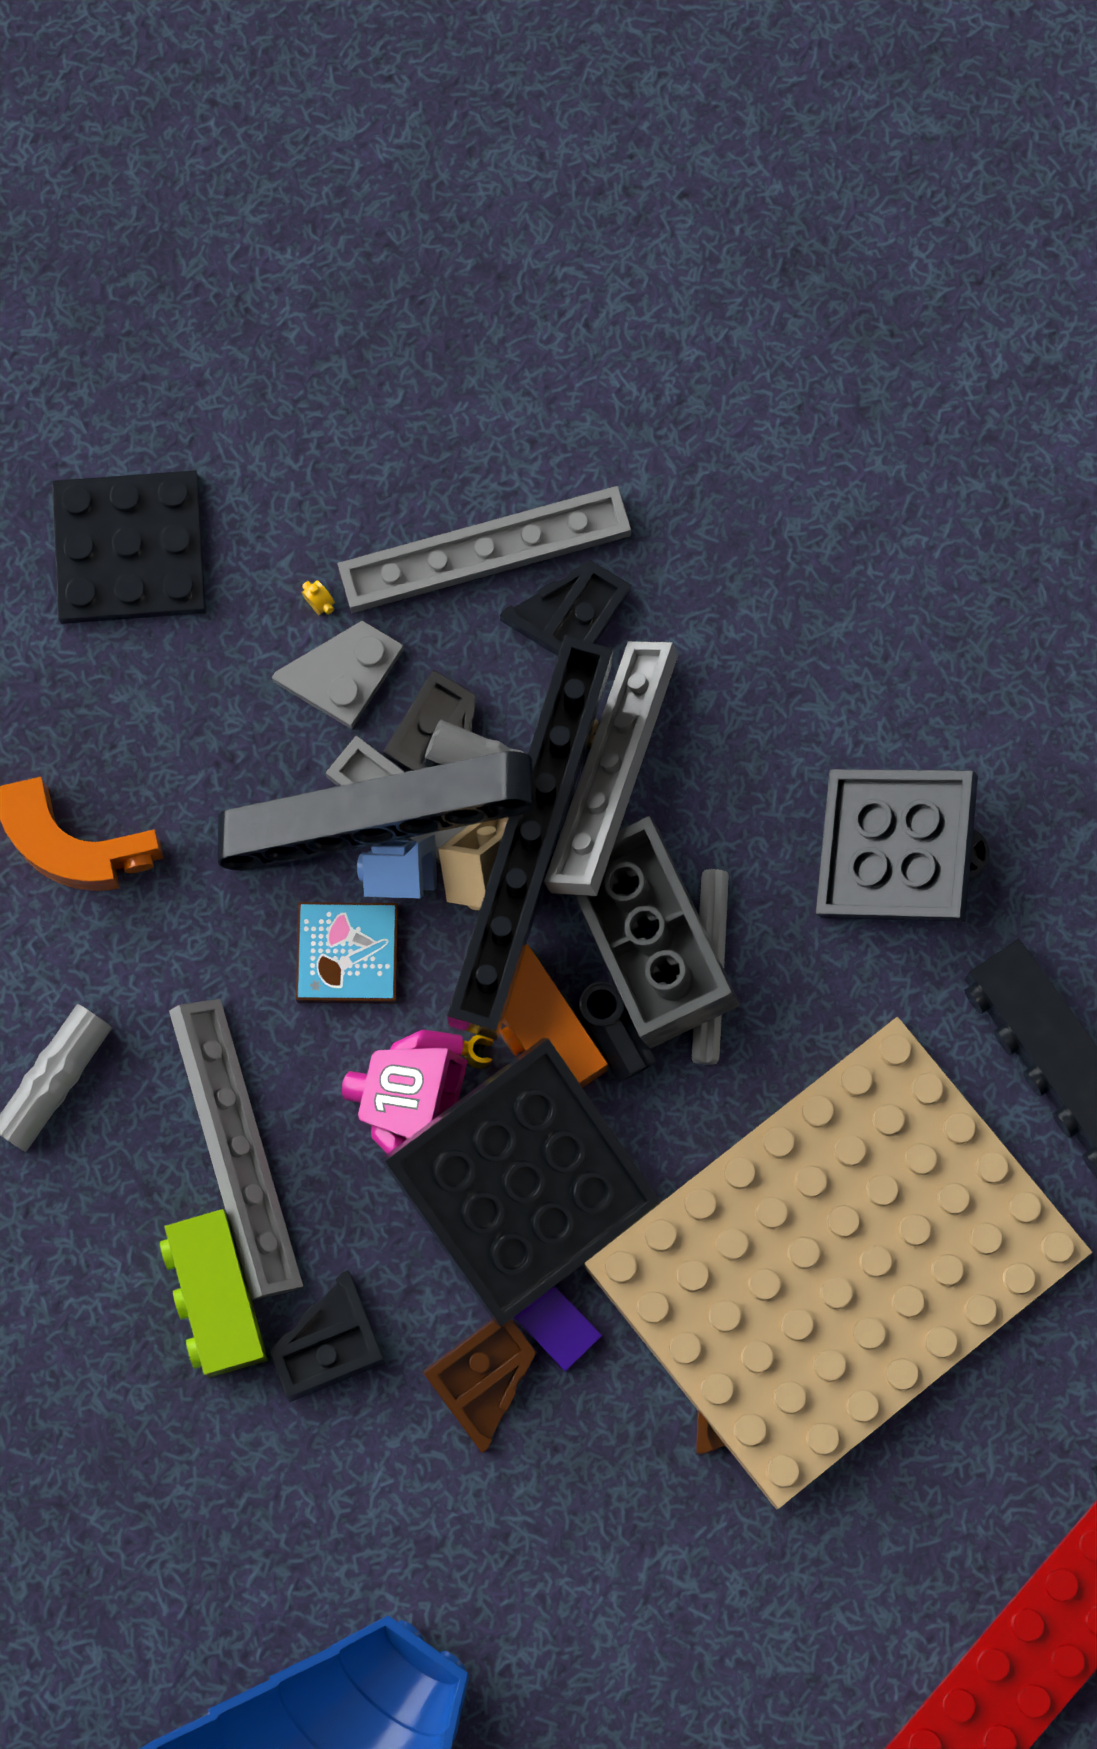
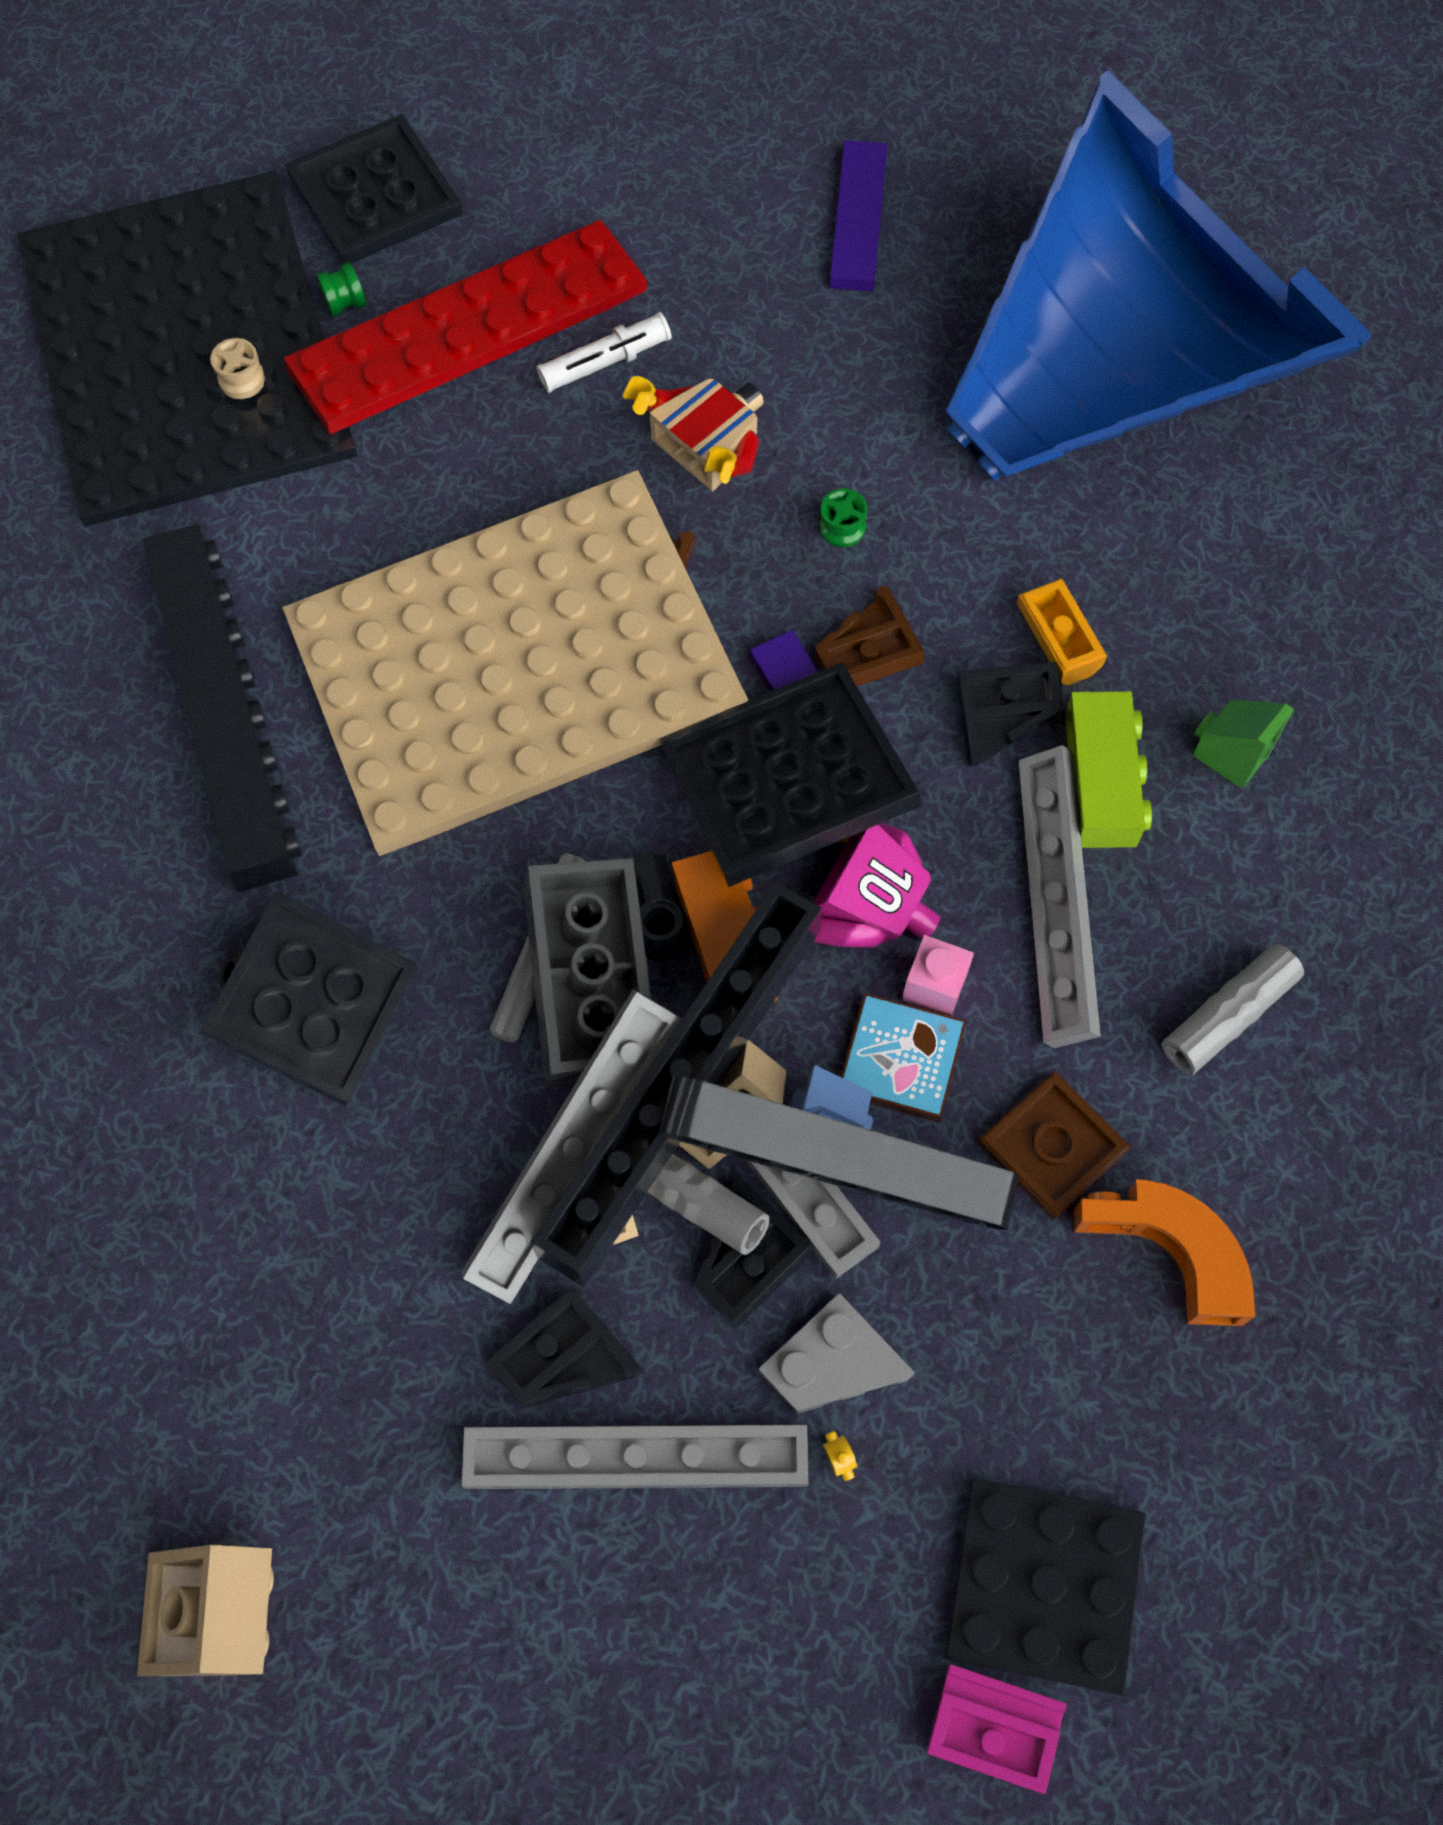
camera: 165 degrees left, 10 degrees down
(87, 1357) = (1240, 737): none -> bright green slope
(147, 431) = (996, 1729): none -> dark pink plate
(192, 909) = (1054, 1145): none -> reddish brown tile
(289, 1443) = (1062, 631): none -> light orange brick
(330, 1028) = (937, 976): none -> bright pink brick
(548, 1514) = (840, 506): none -> green wheel
(723, 1590) = (702, 426): none -> torso
(786, 343) = (206, 1611): none -> tan slope
(868, 1672) = (652, 330): none -> white pin

